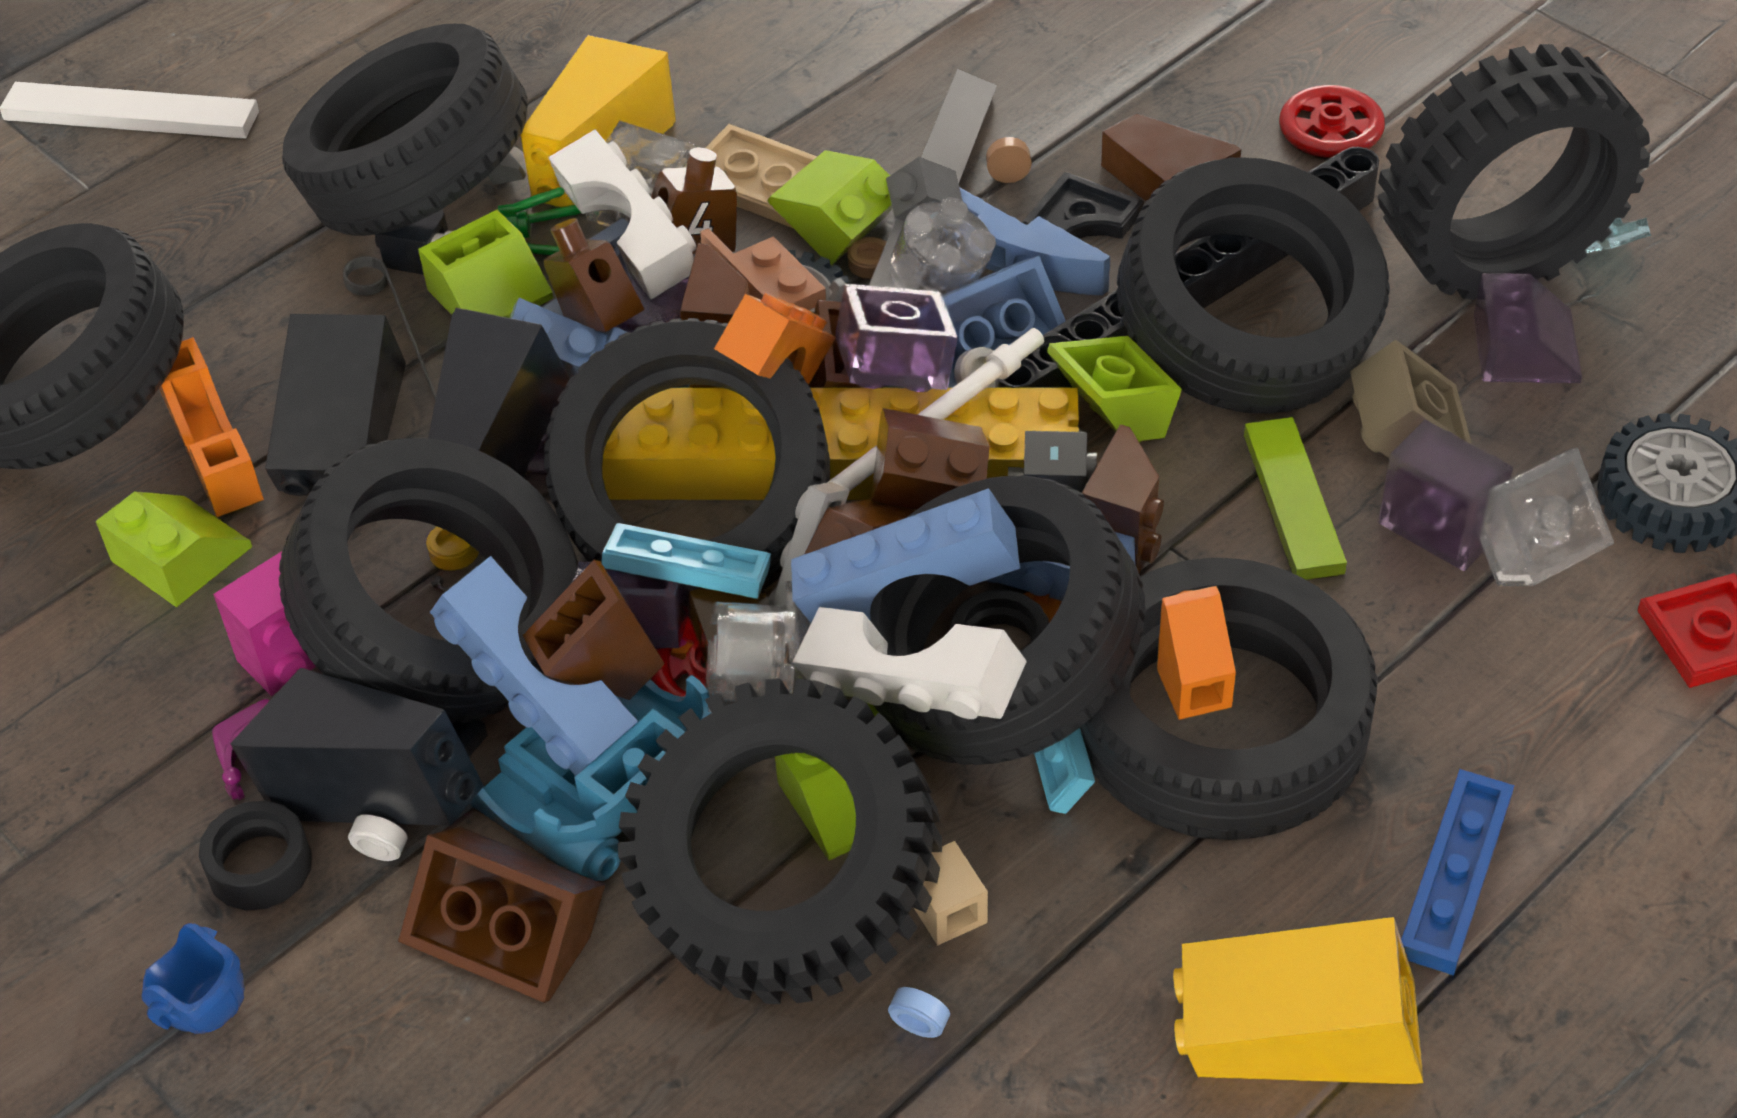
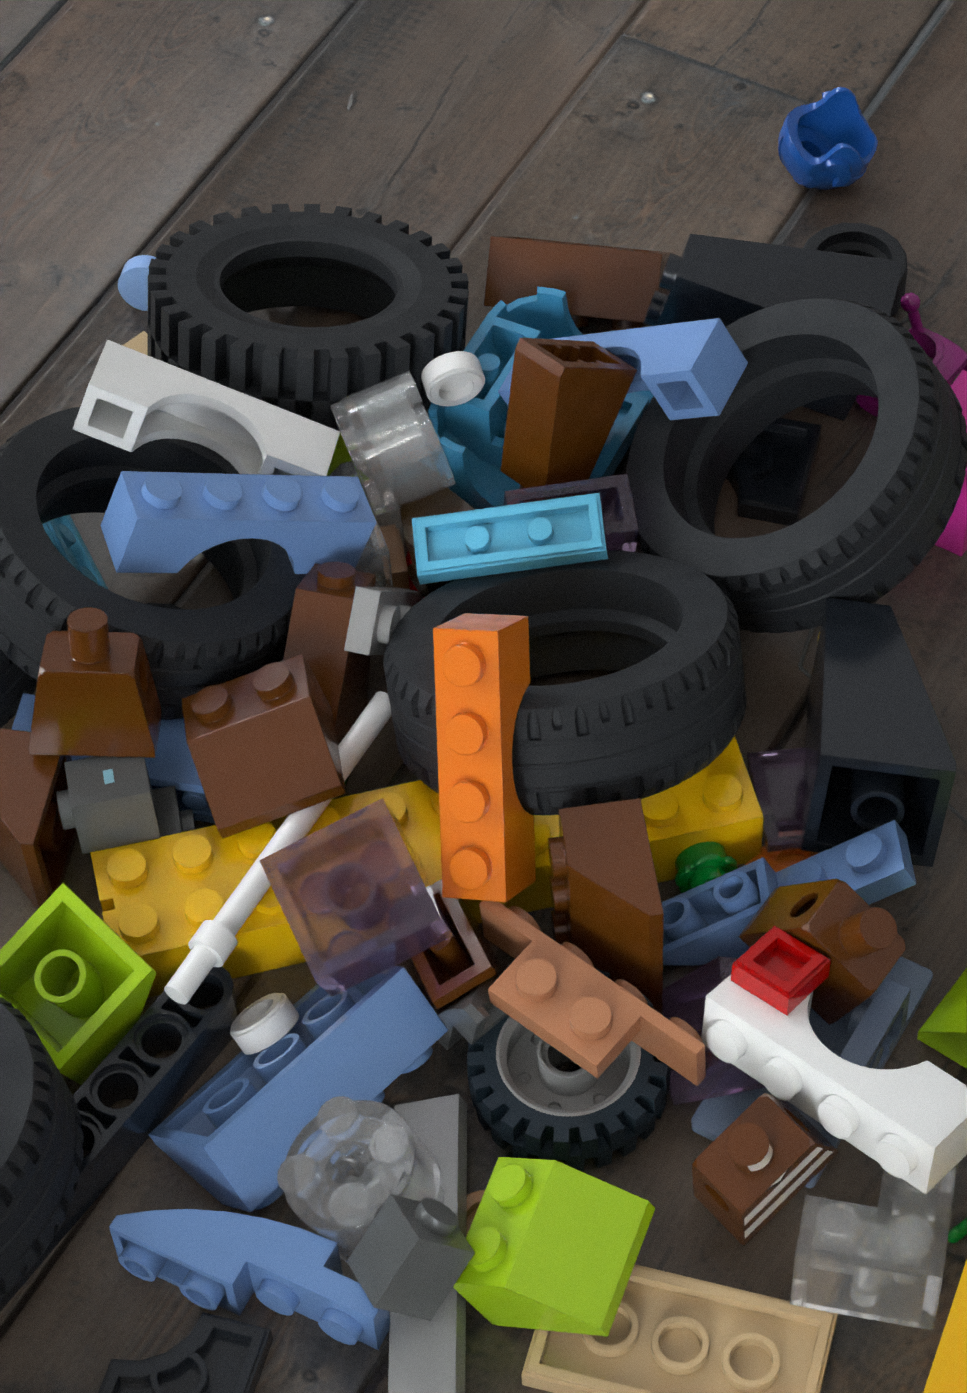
camera: 165 degrees right, 5 degrees up
(635, 243) = (780, 970): none -> red tile
(668, 705) = (453, 378): none -> white tile
(1062, 457) = (94, 692): none -> reddish brown torso

